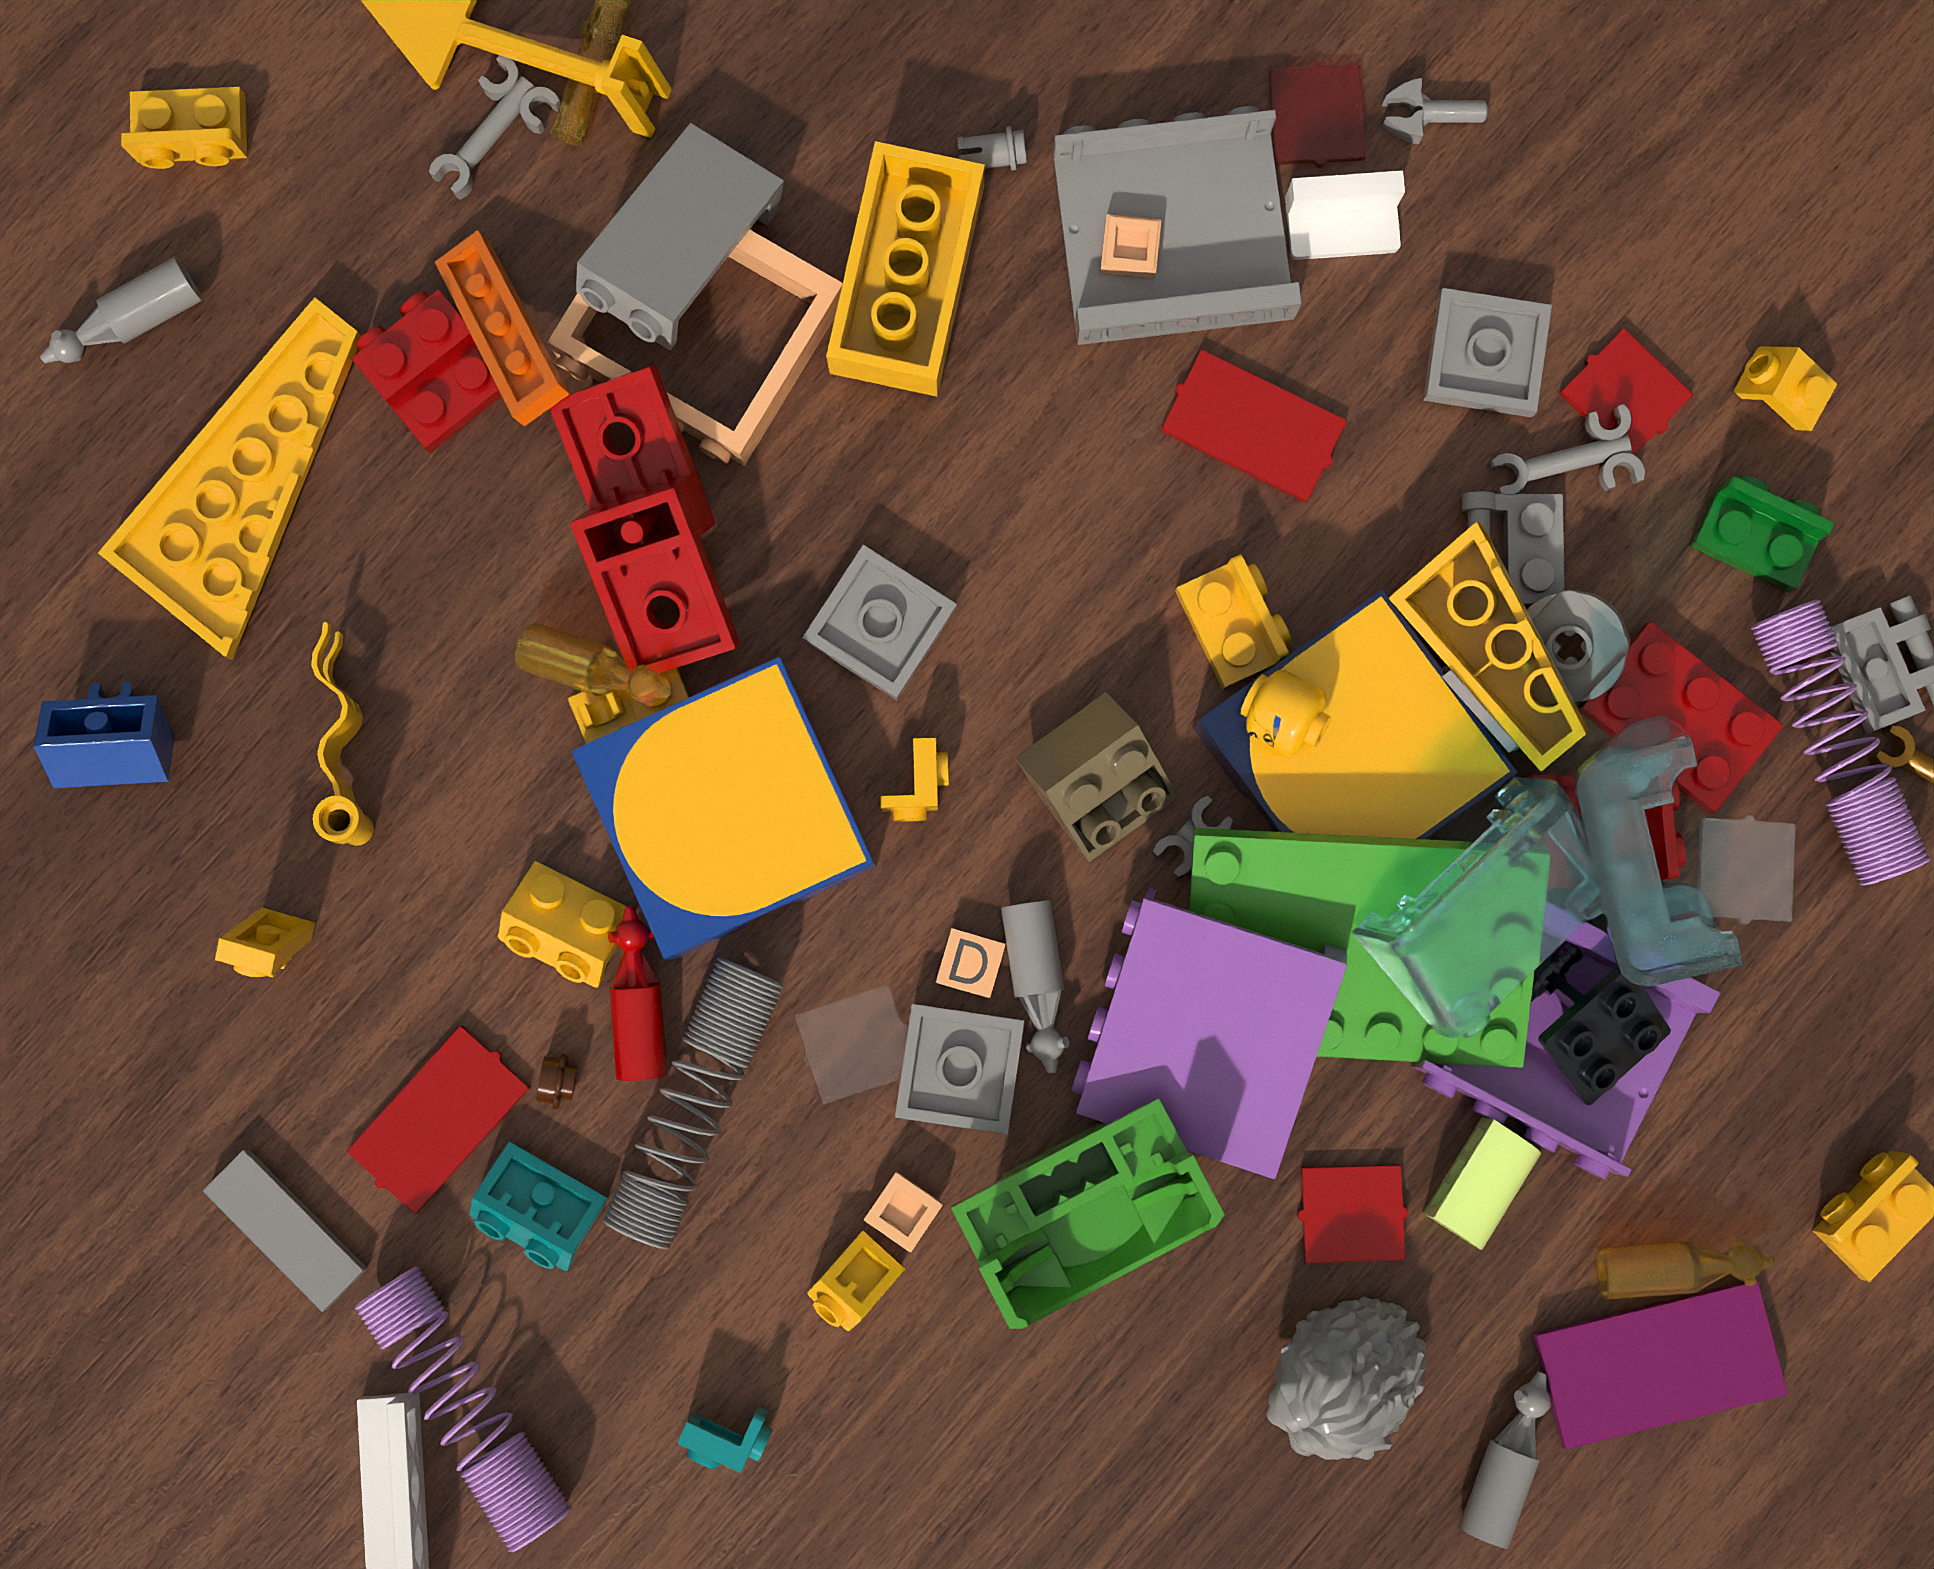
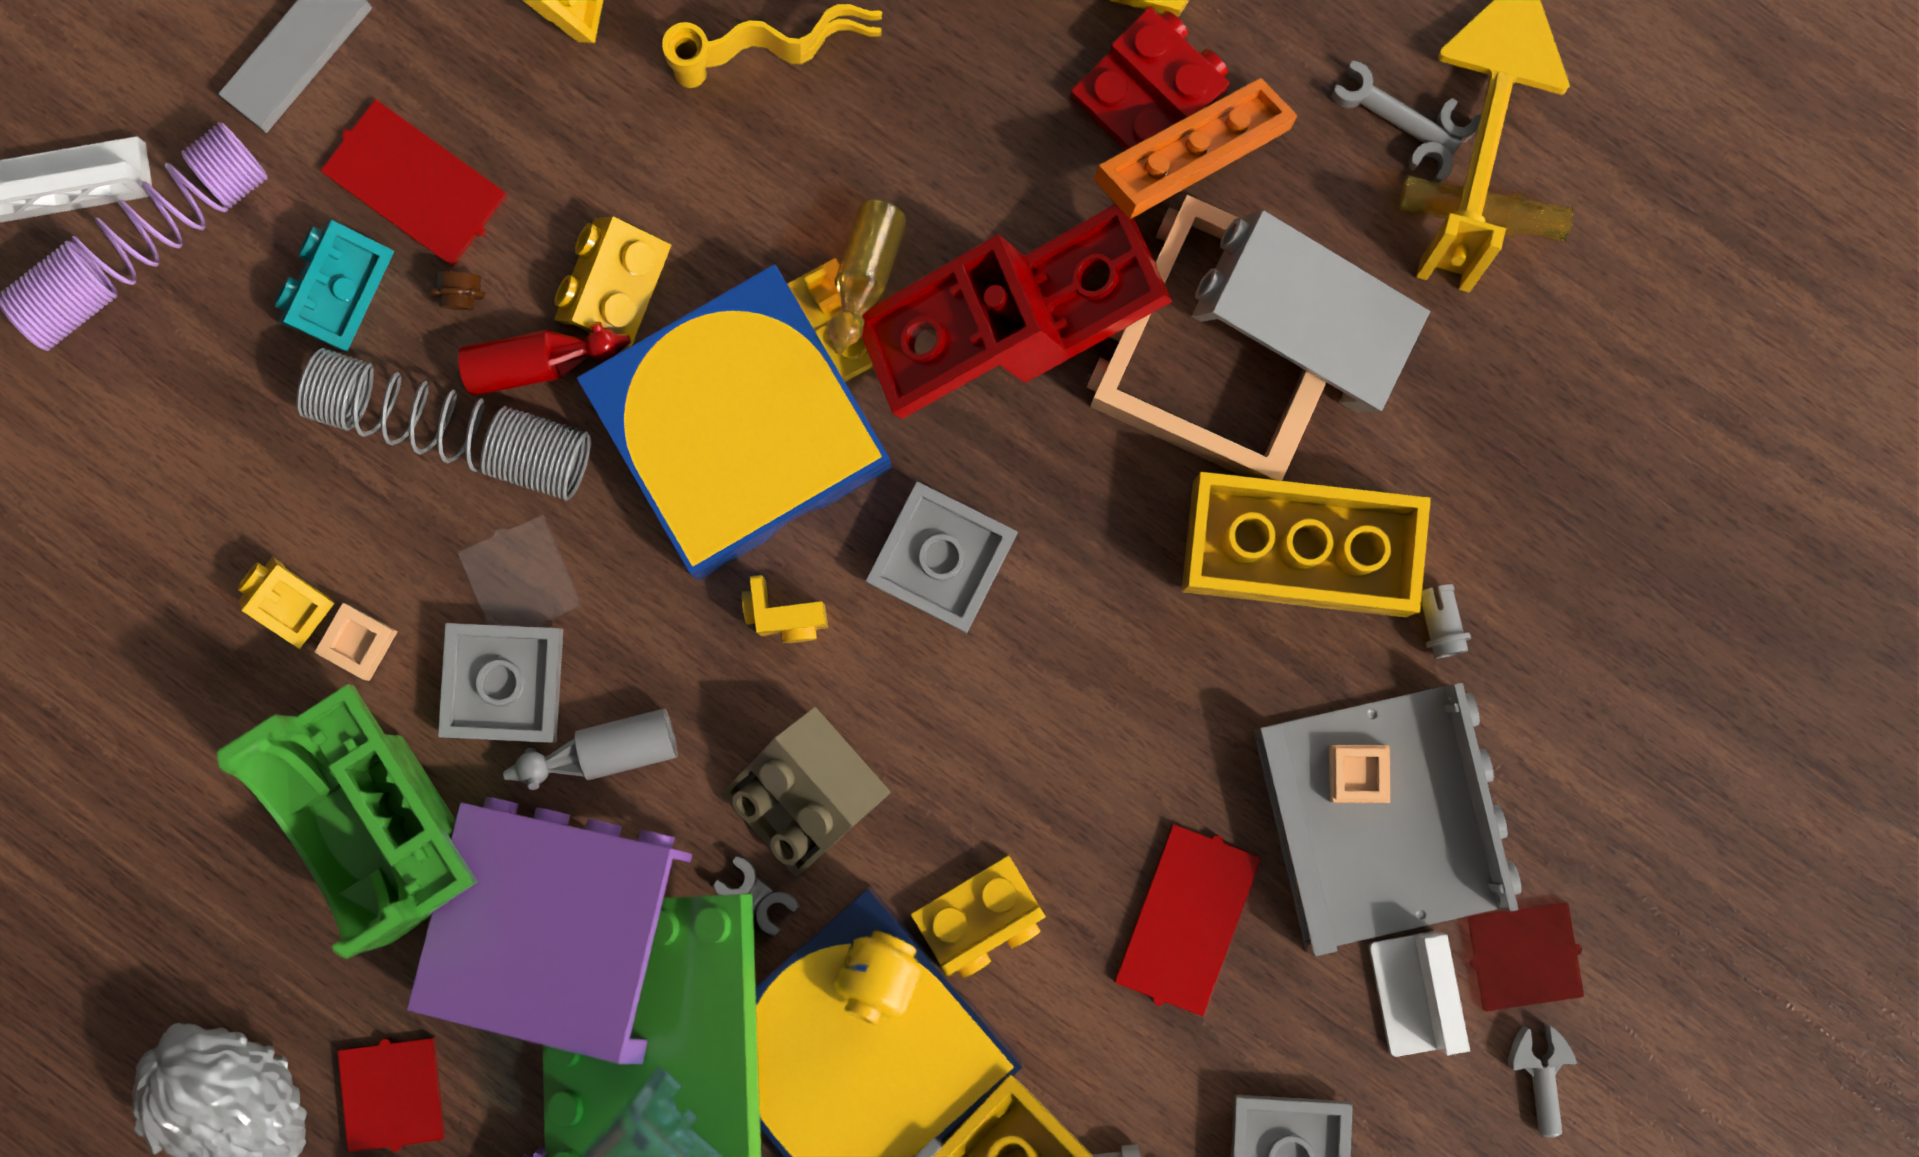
camera: 85 degrees right, 0 degrees up
(715, 1444) = (116, 485): teal bracket -> none
(970, 963) = (608, 683): light nougat tile -> none

